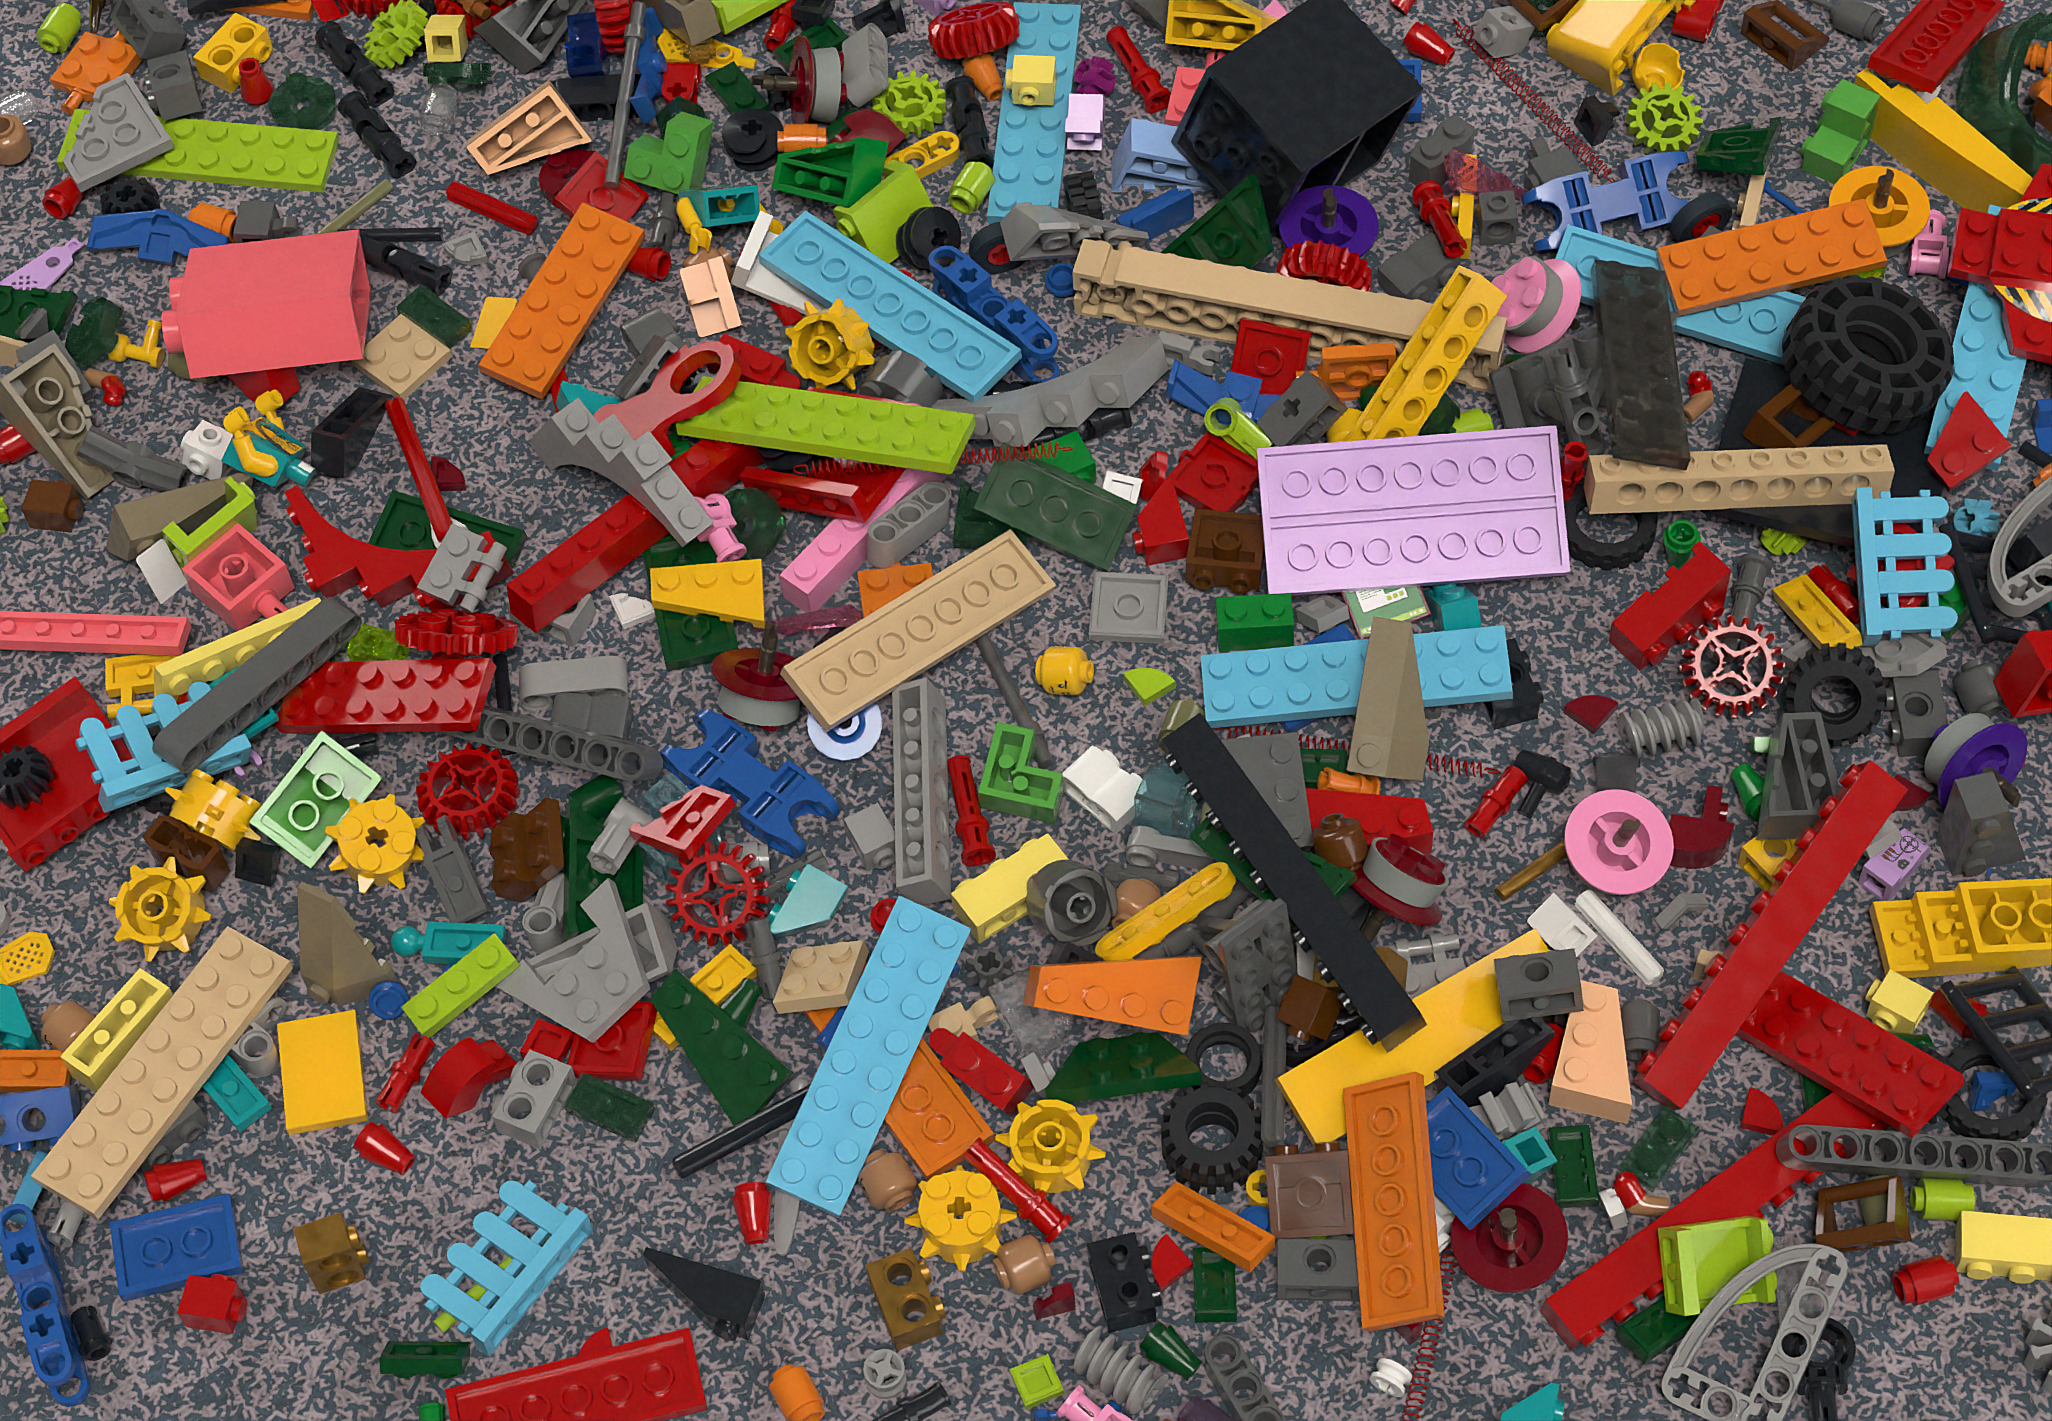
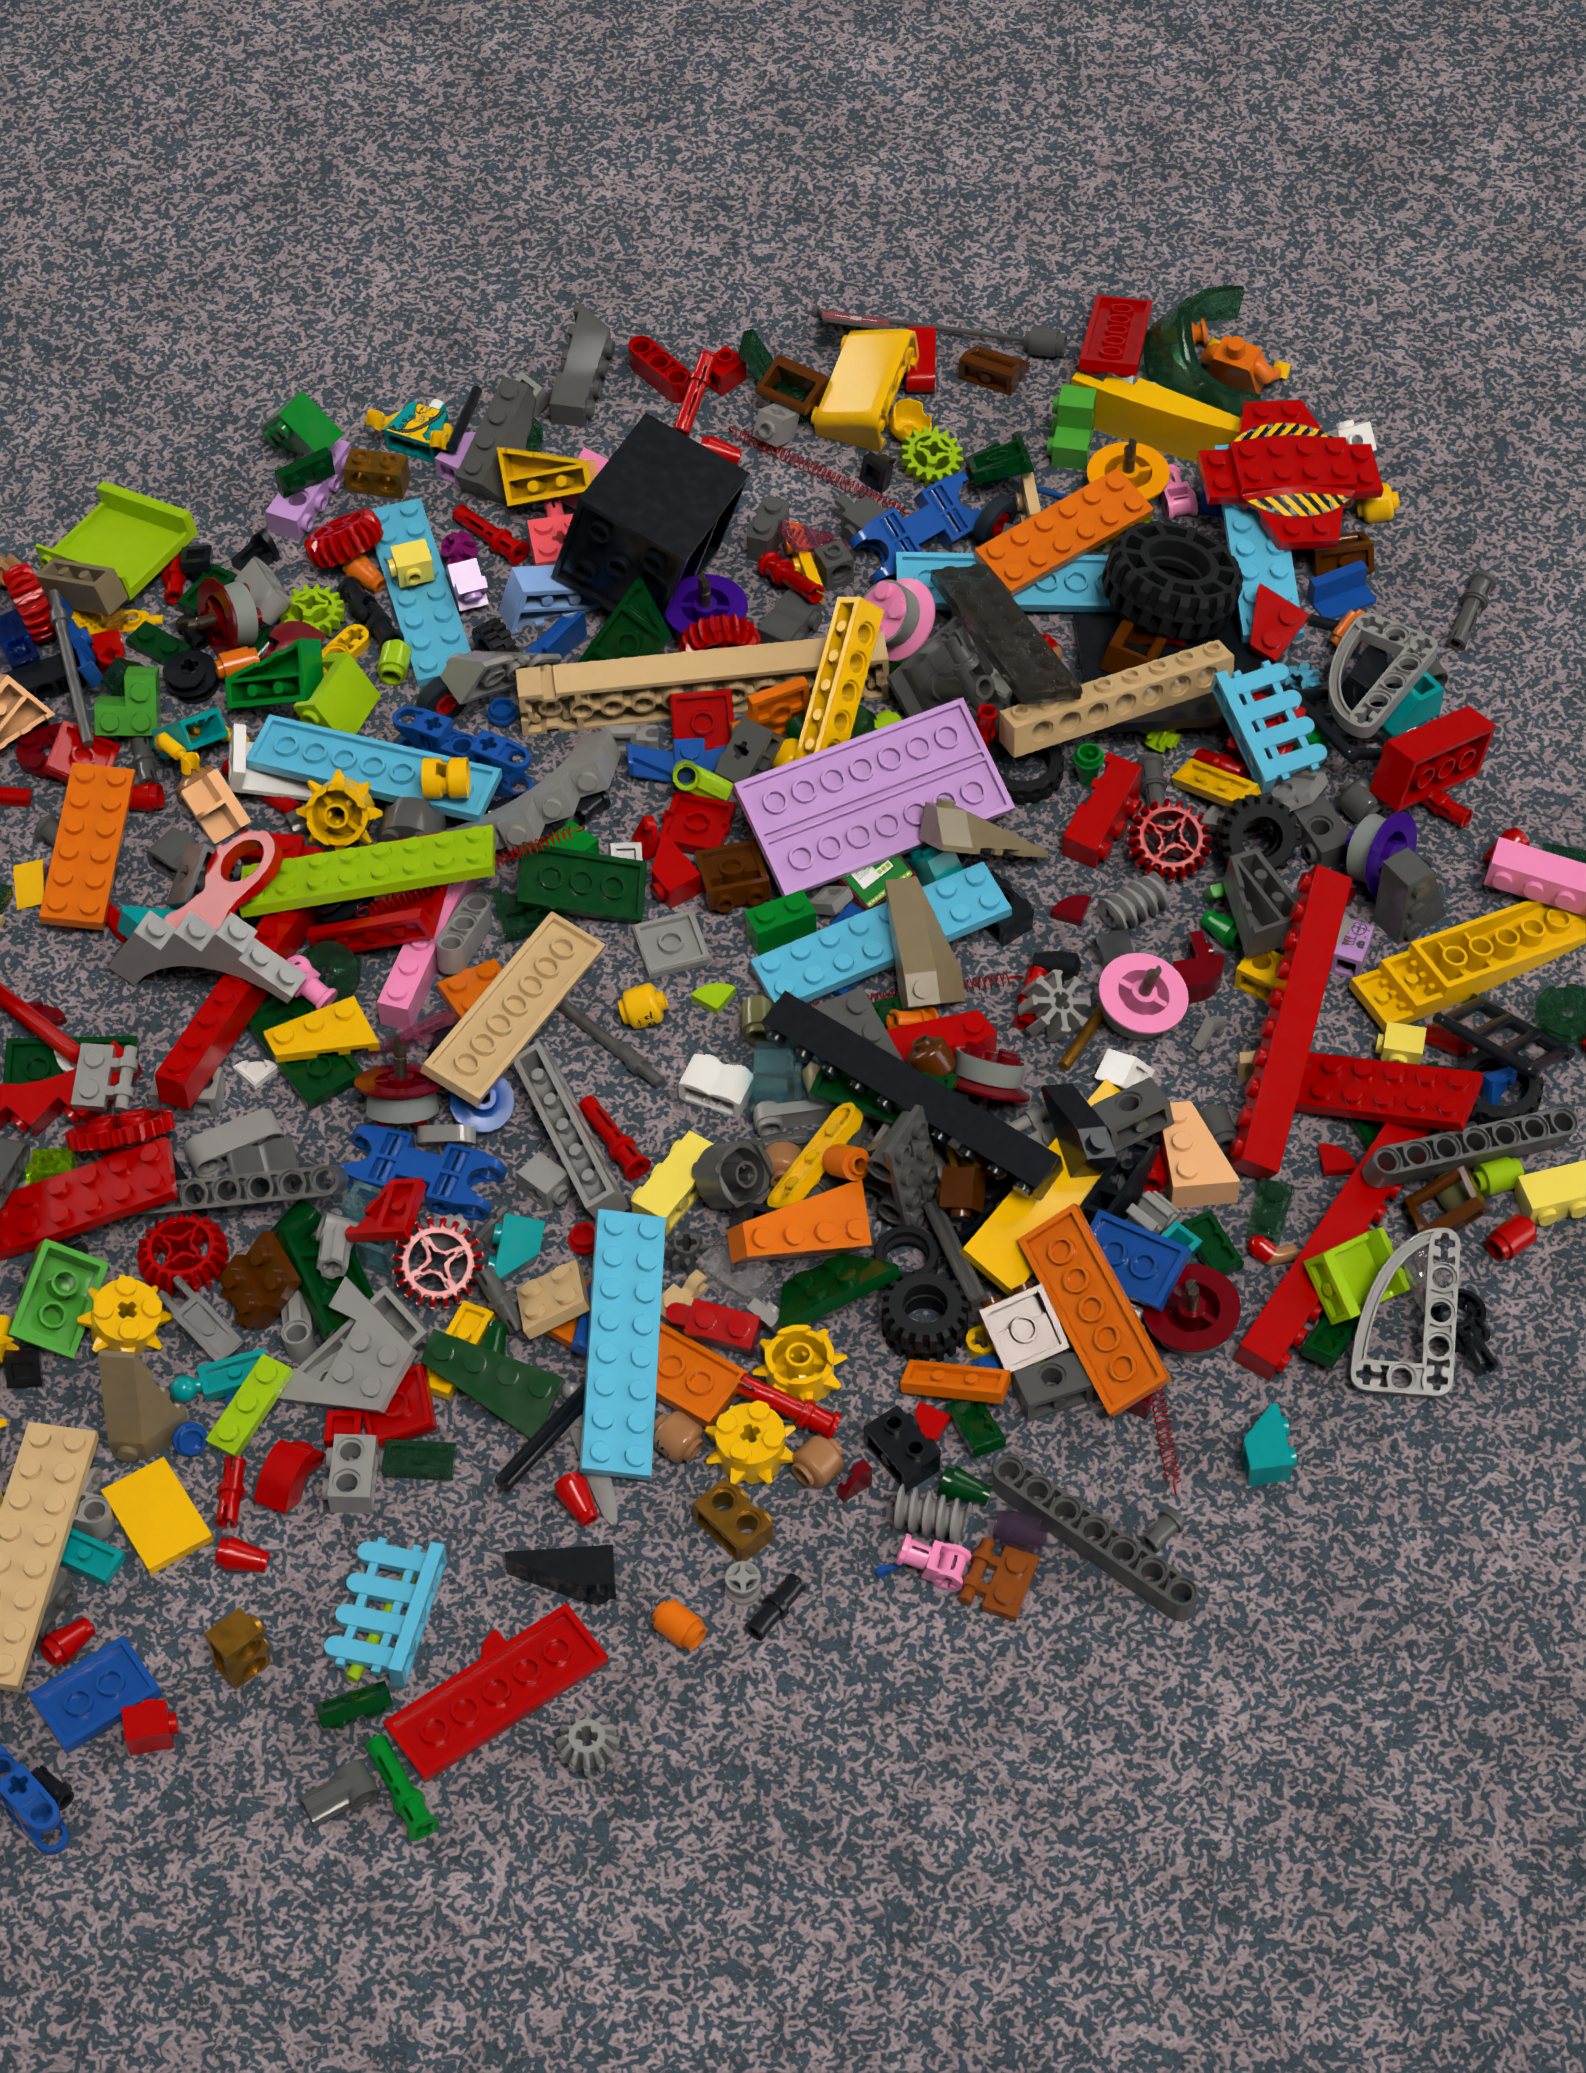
camera: 25 degrees left, 5 degrees down
(792, 750) = (442, 1134): none -> light grey beam
(924, 232) = (375, 709): black piece -> none
(951, 343) = (445, 777): none -> yellow wheel
(1010, 781) = (644, 1103): bright green brick -> none
(1036, 1381) = (866, 1547): lime tile -> none
(1190, 931) = (846, 1161): none -> orange brick
(1390, 1377) = (1144, 1446): white bush -> none
(1468, 981) = (1079, 1131): none -> black slope
(1493, 583) = (960, 831): none -> dark tan wedge
(1523, 836) = (1054, 1005): none -> light grey gear
(1613, 1208) = (1257, 1265): white tile -> none
(1619, 937) = (1171, 1068): white axle -> none

